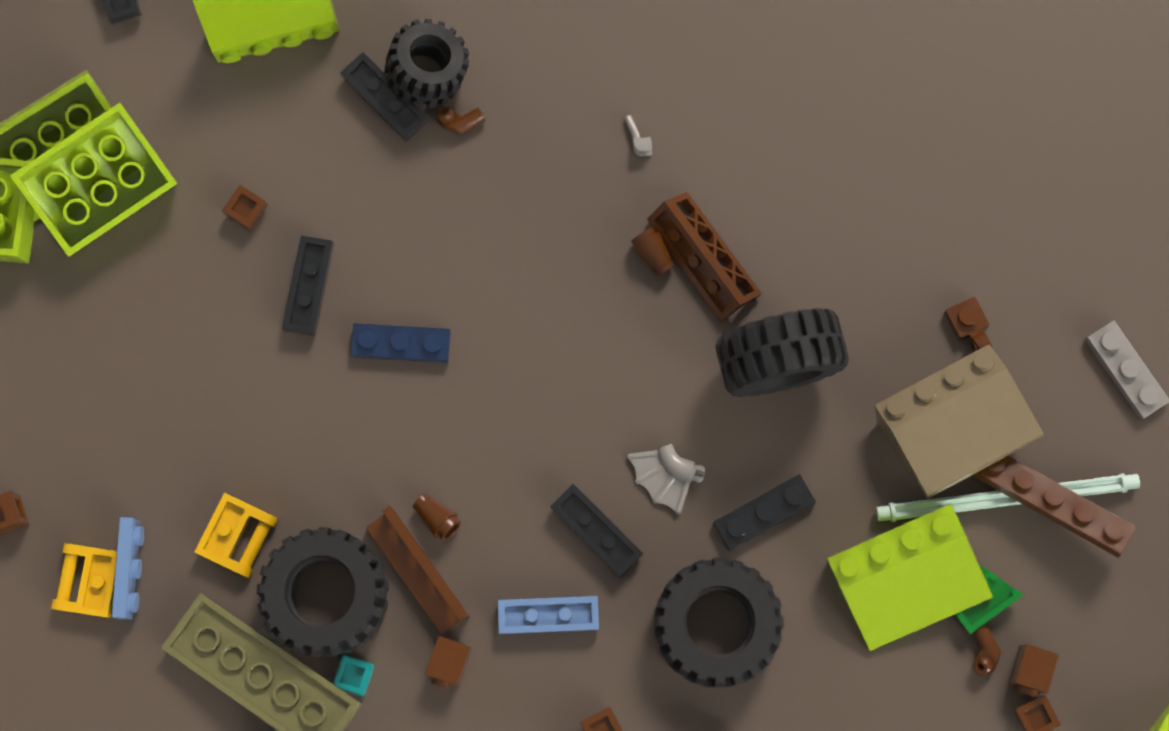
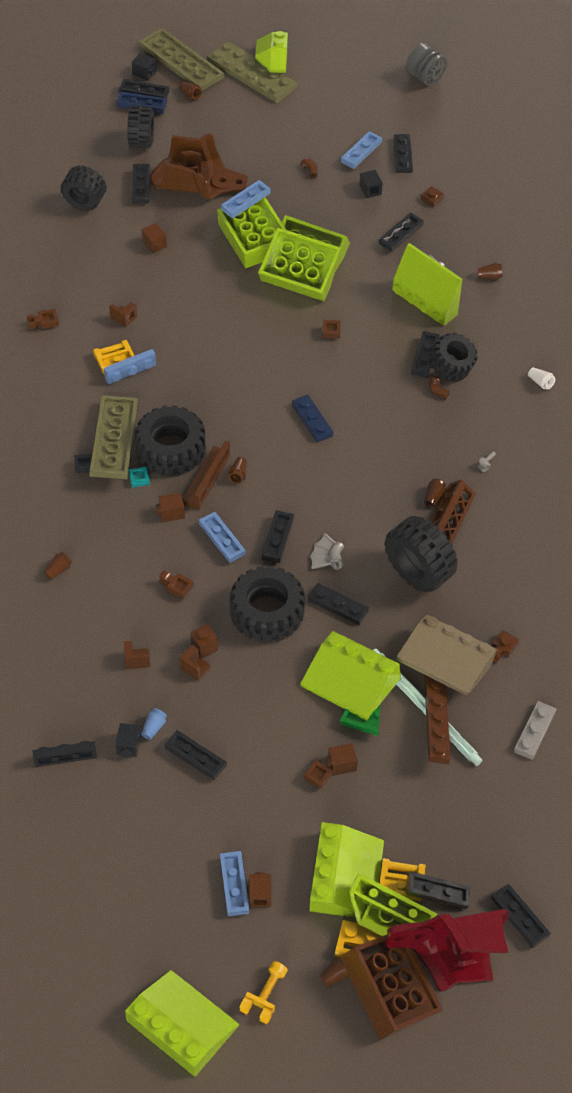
camera: 55 degrees right, 25 degrees down
(226, 531) = (175, 394): yellow plate -> none
(308, 285) = (312, 369): black plate -> none
(988, 653) = (336, 738): reddish brown arm -> none

